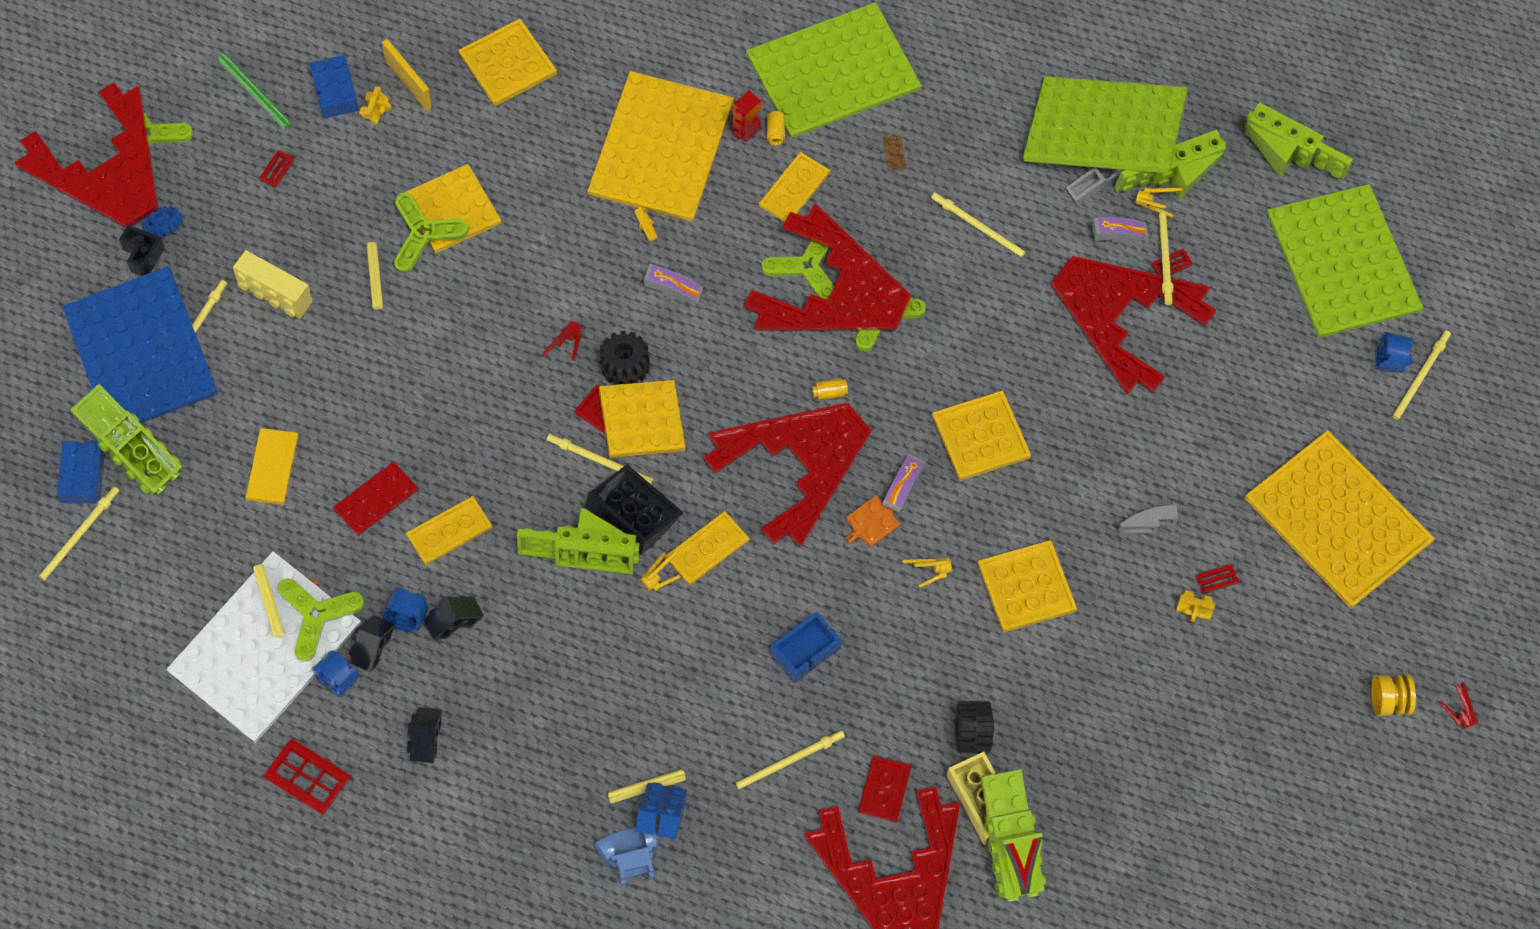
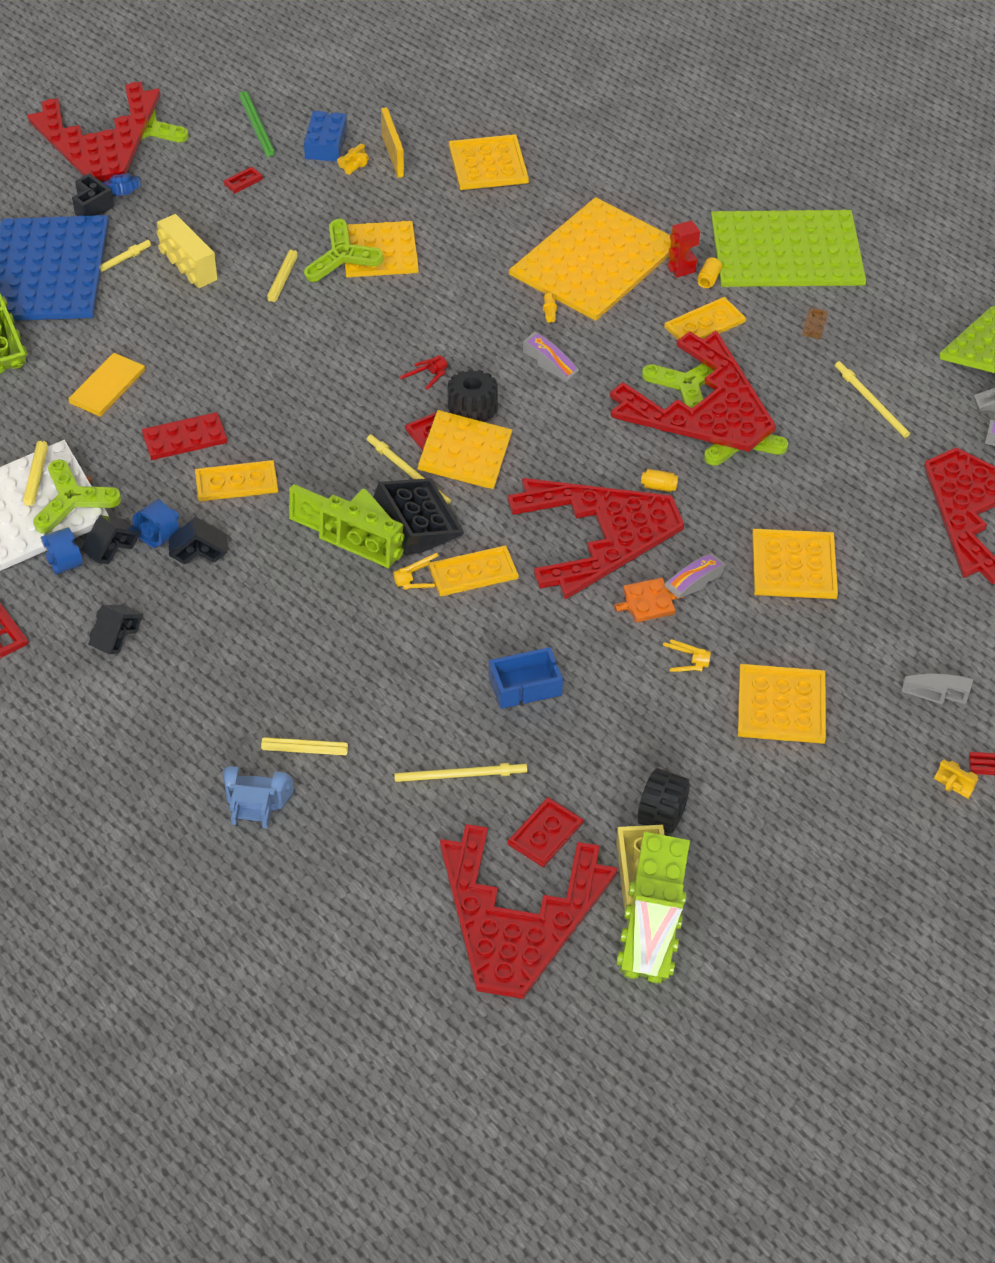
camera: 25 degrees right, 15 degrees down
(662, 801) = (306, 762): blue piece -> none

